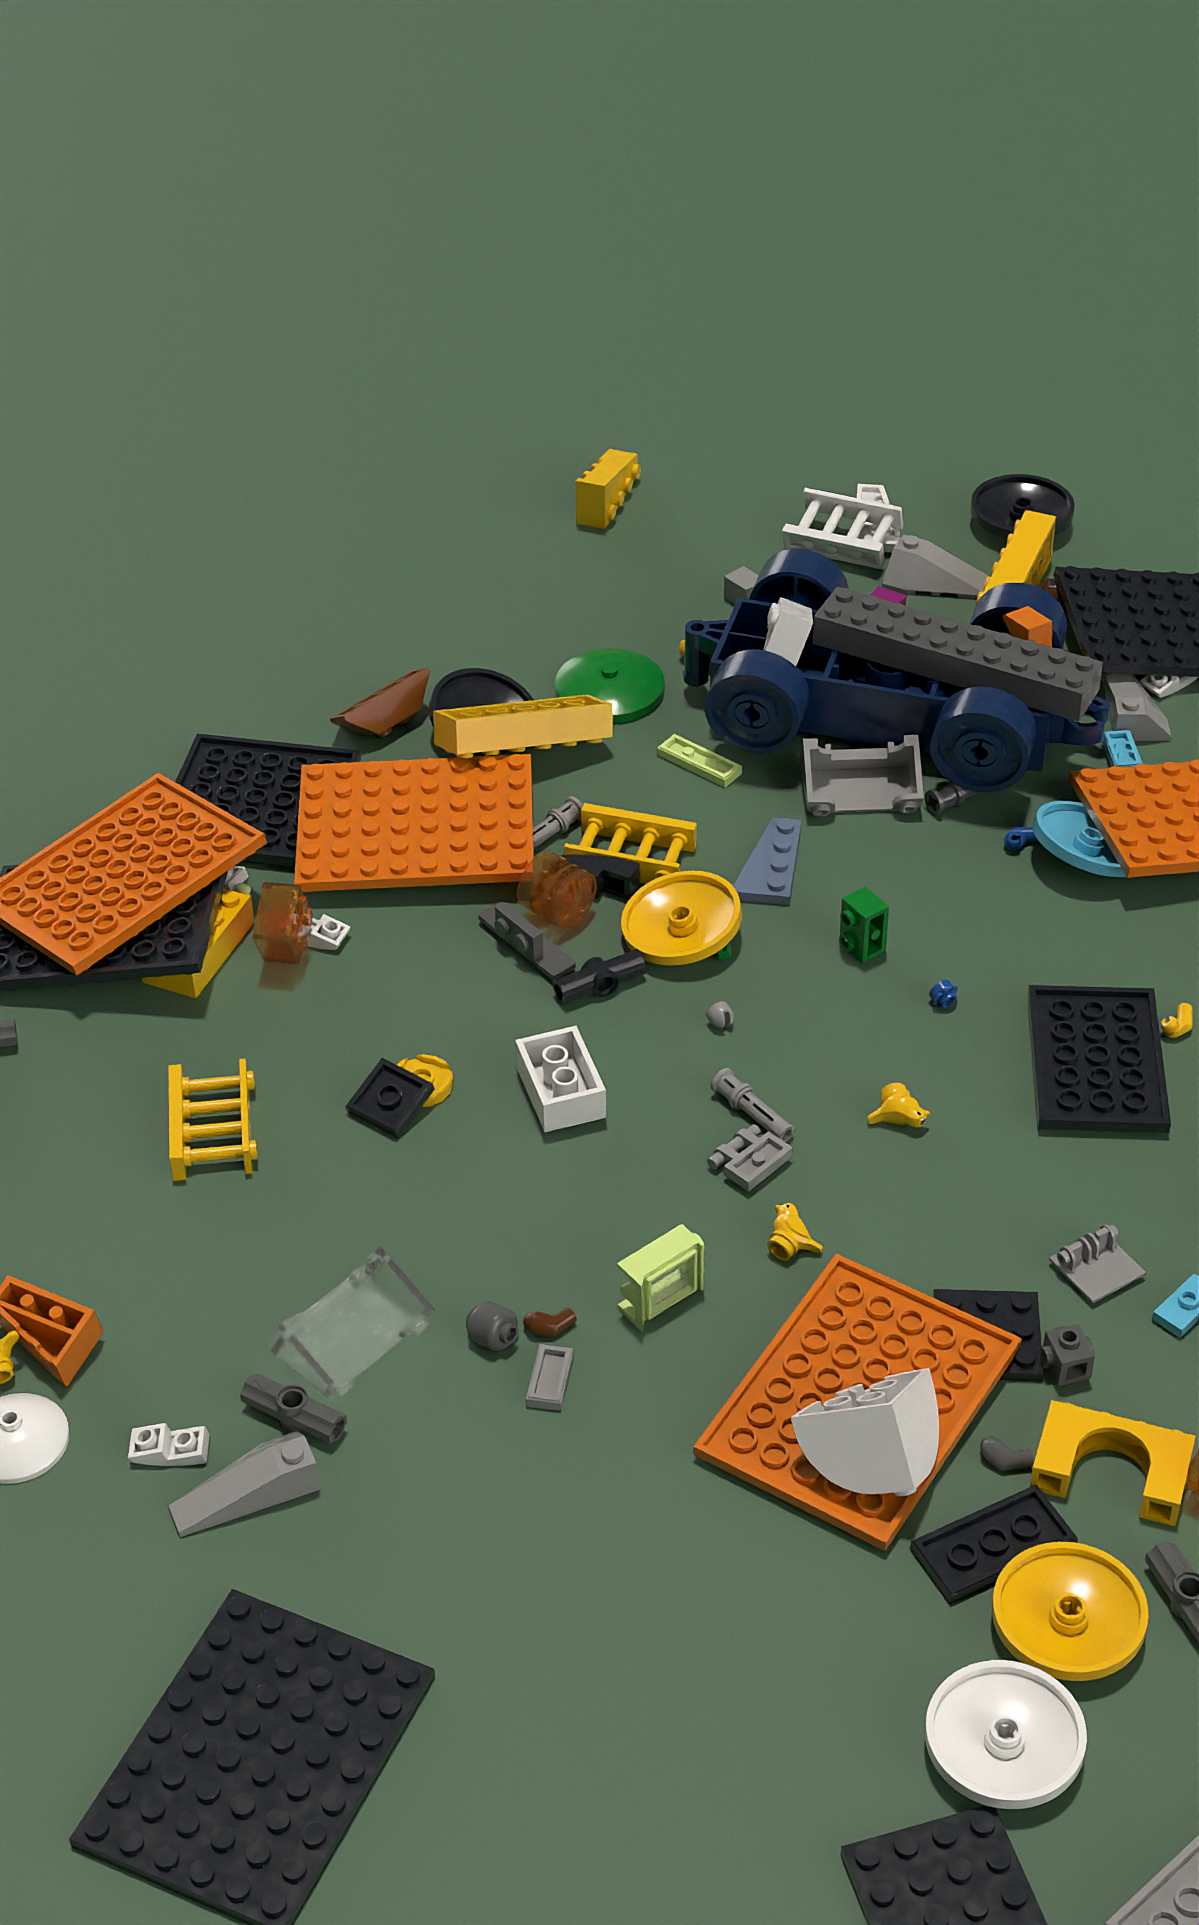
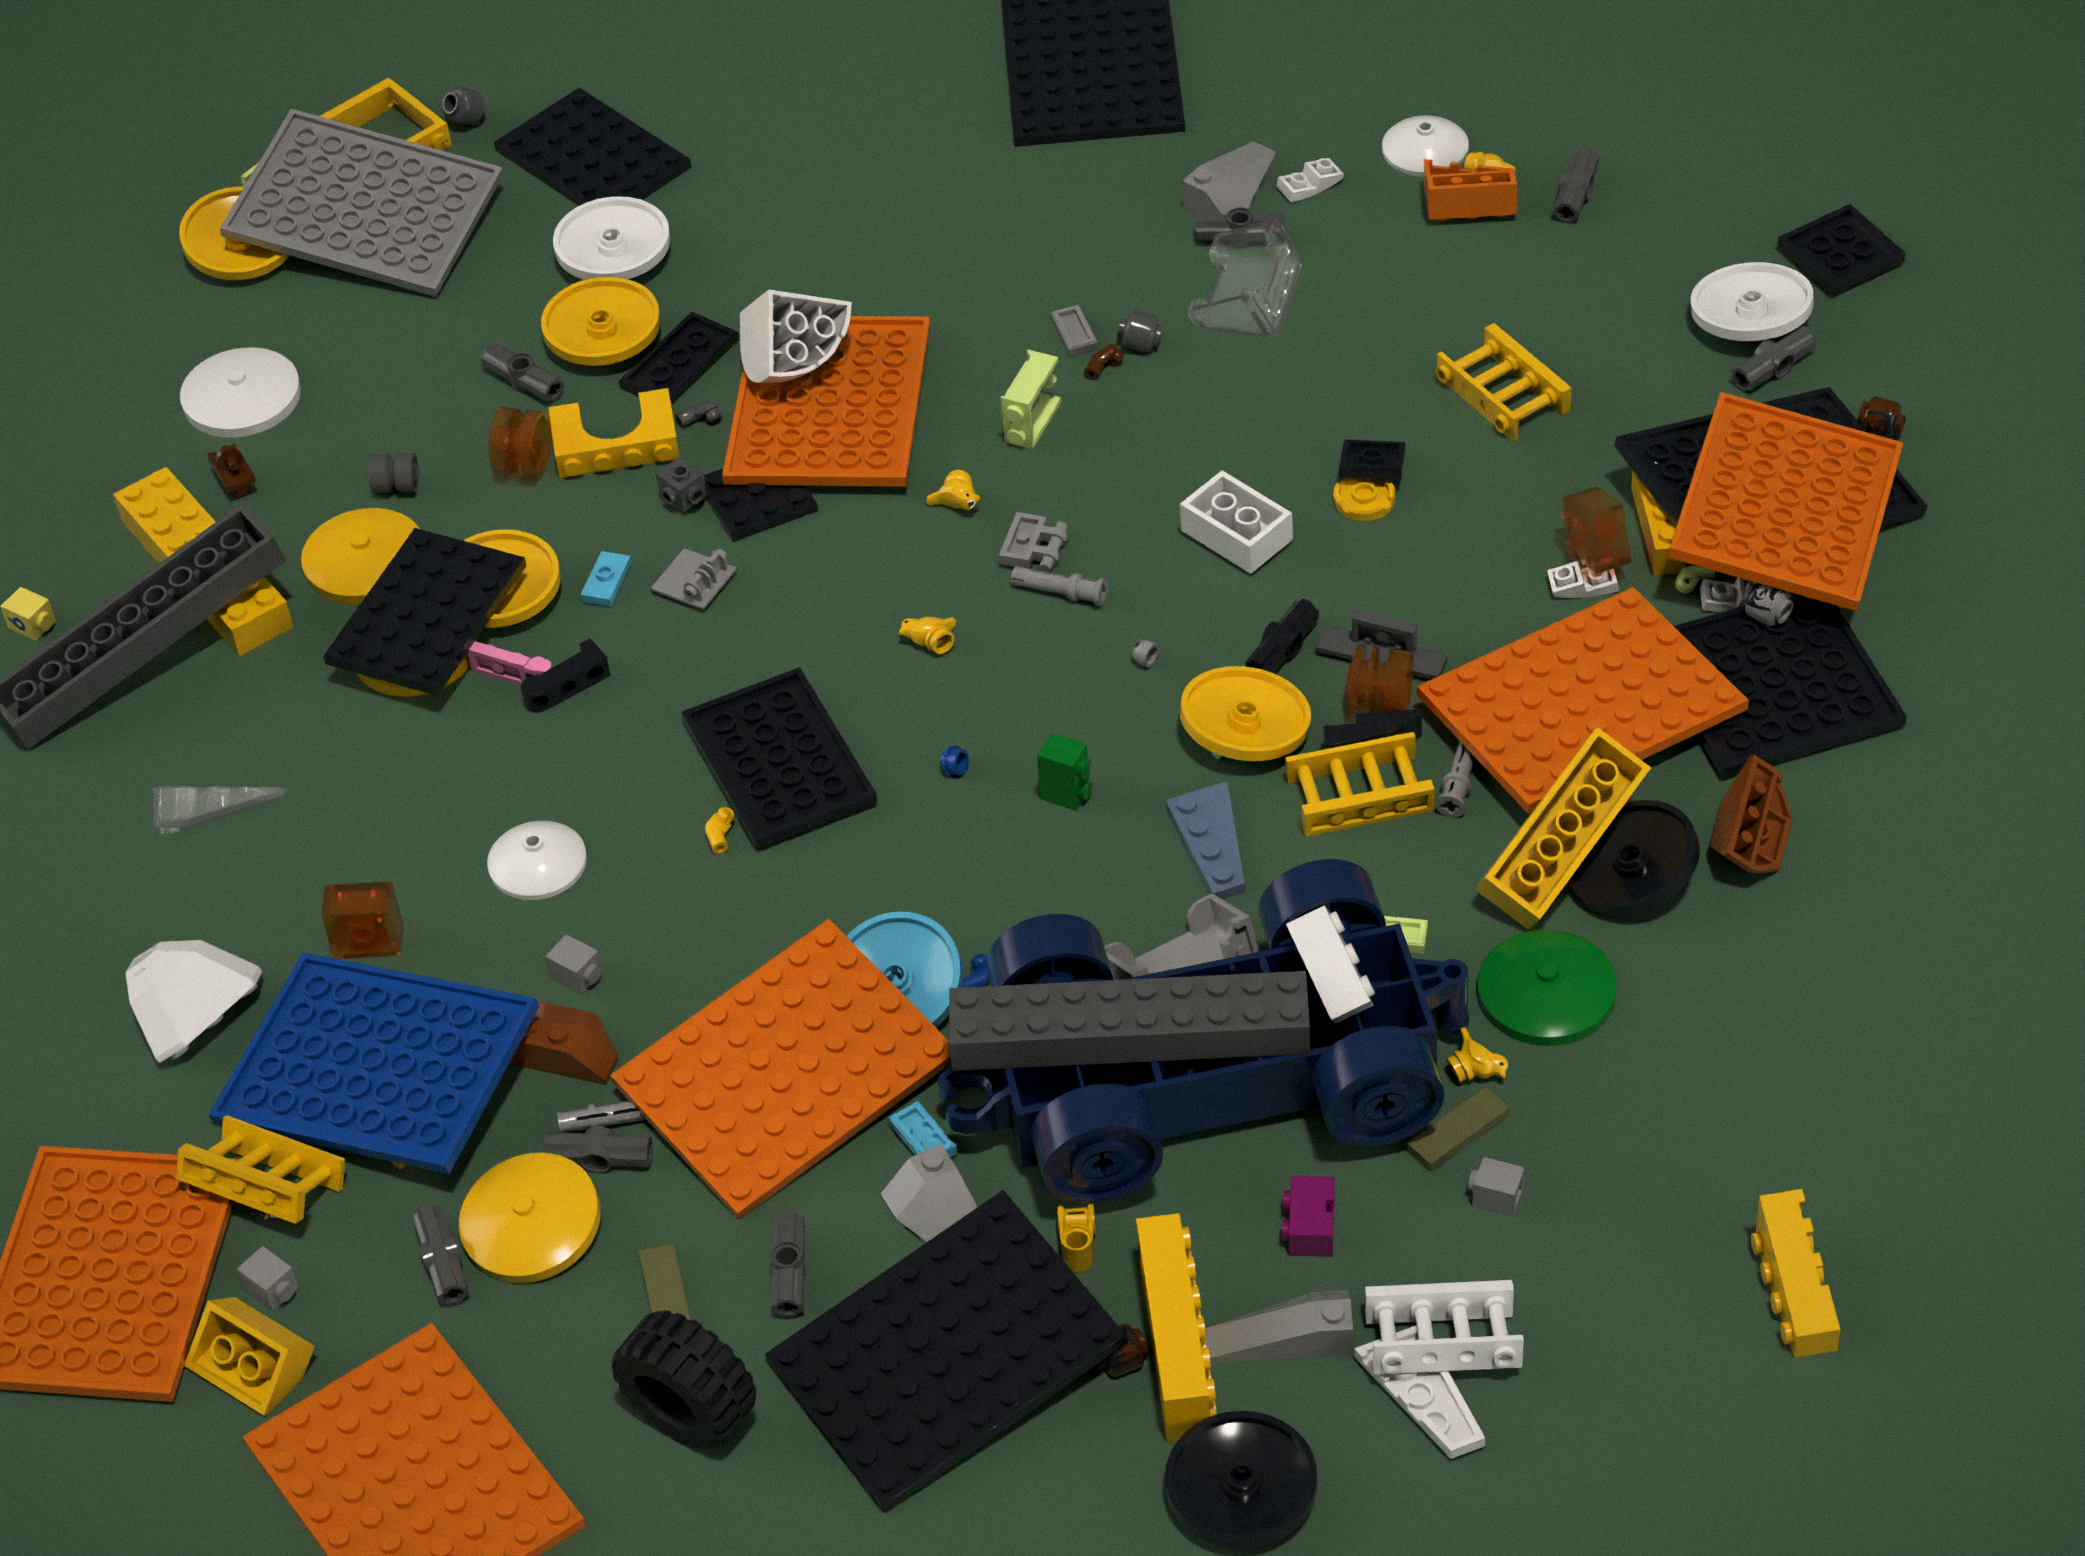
camera: 155 degrees right, 5 degrees up
(1029, 625) = (1058, 1068): orange slope -> none

